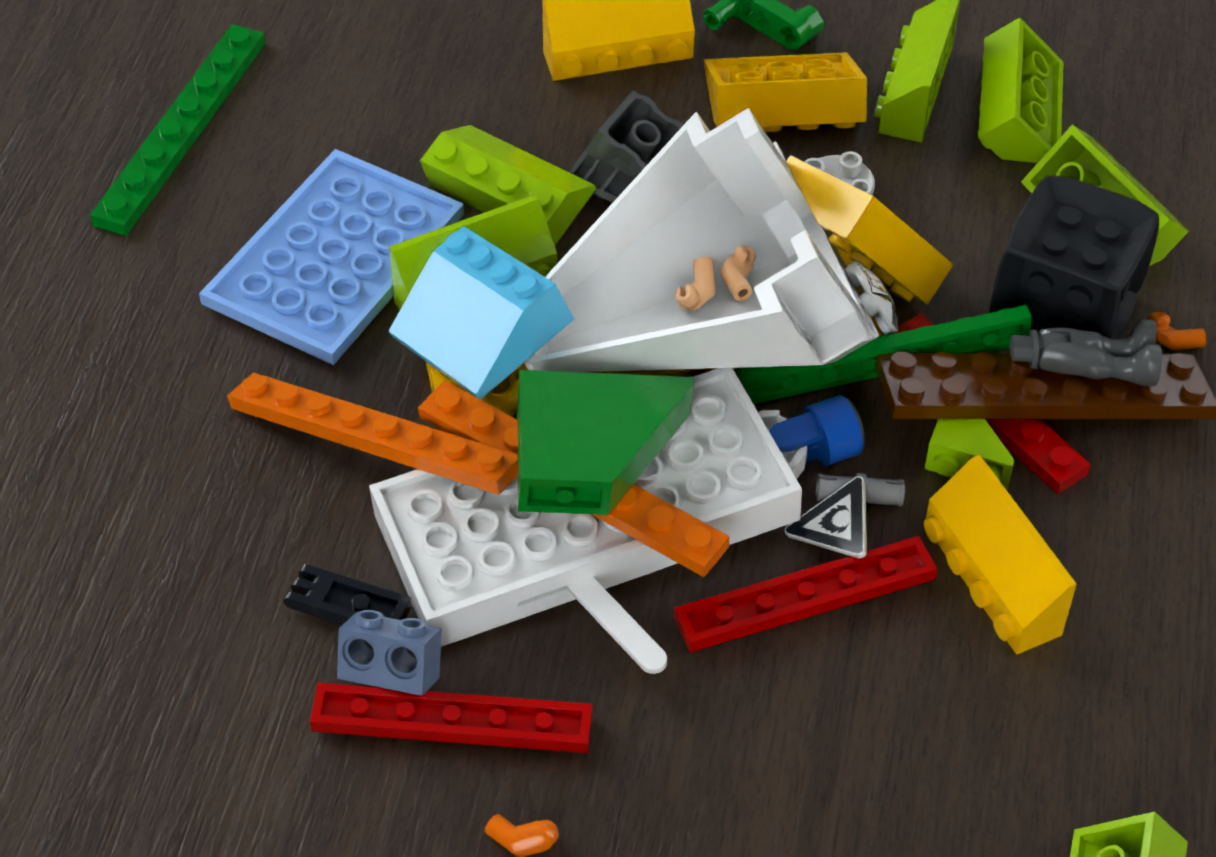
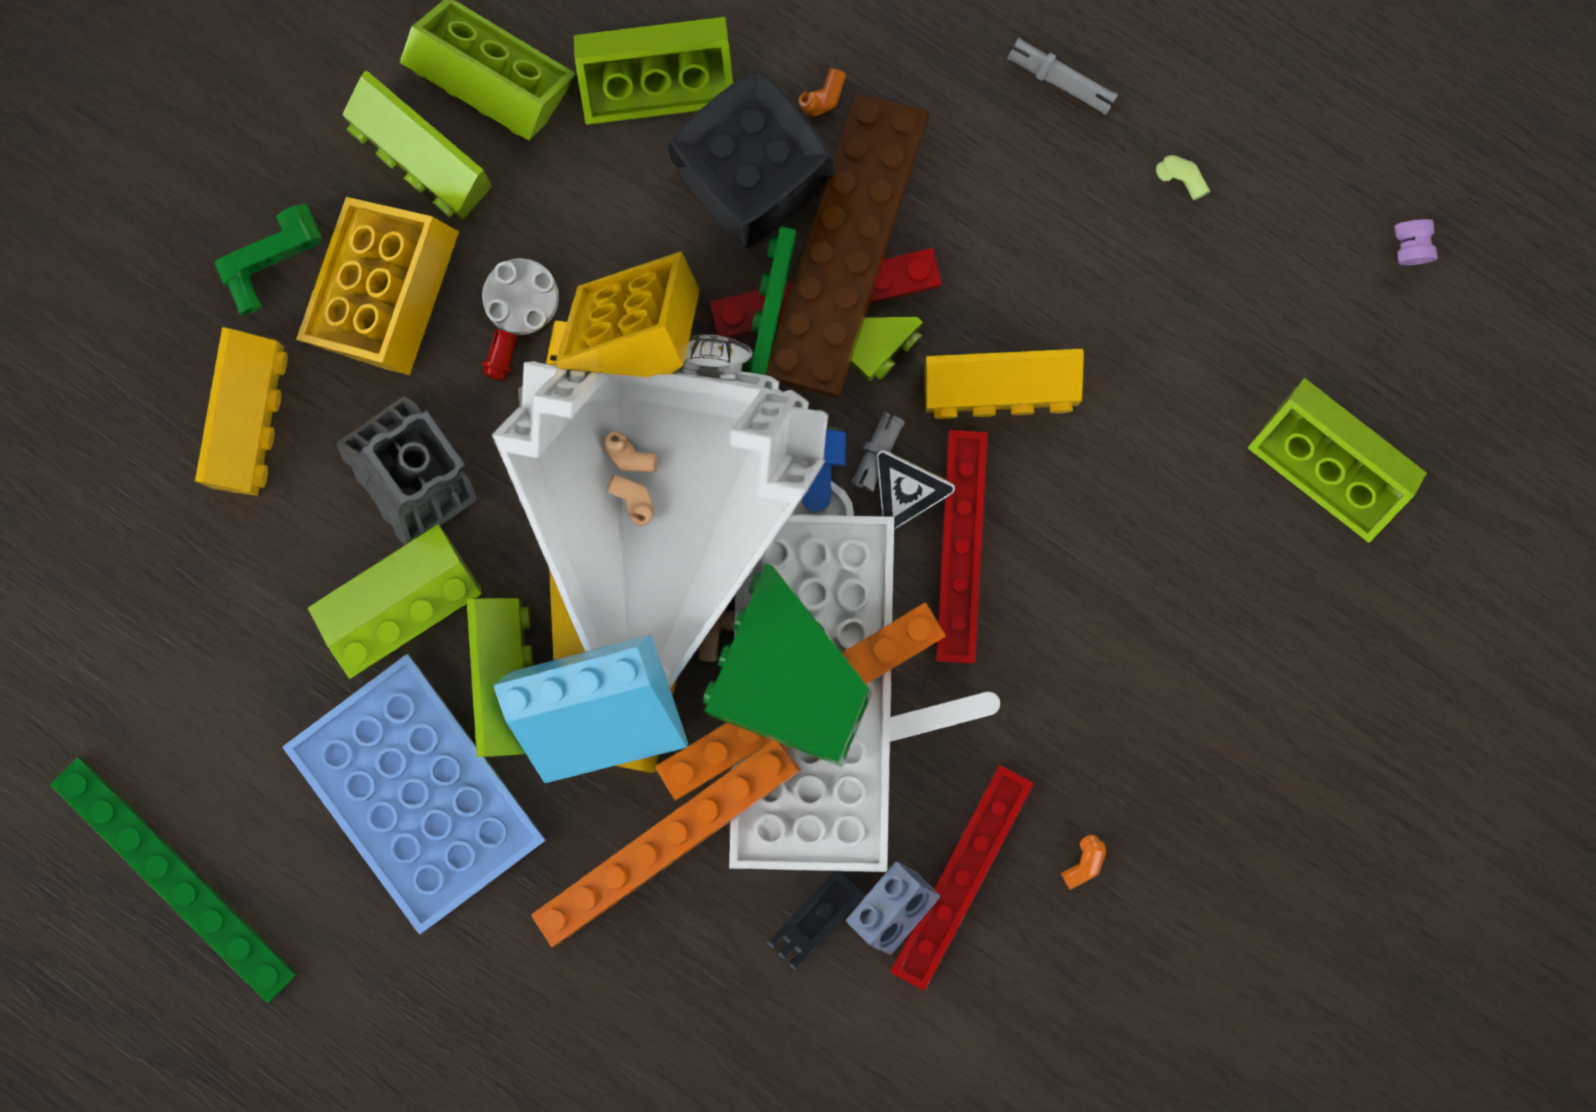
camera: 60 degrees left, 35 degrees up
(1092, 354) = (844, 206): dark grey piece -> none

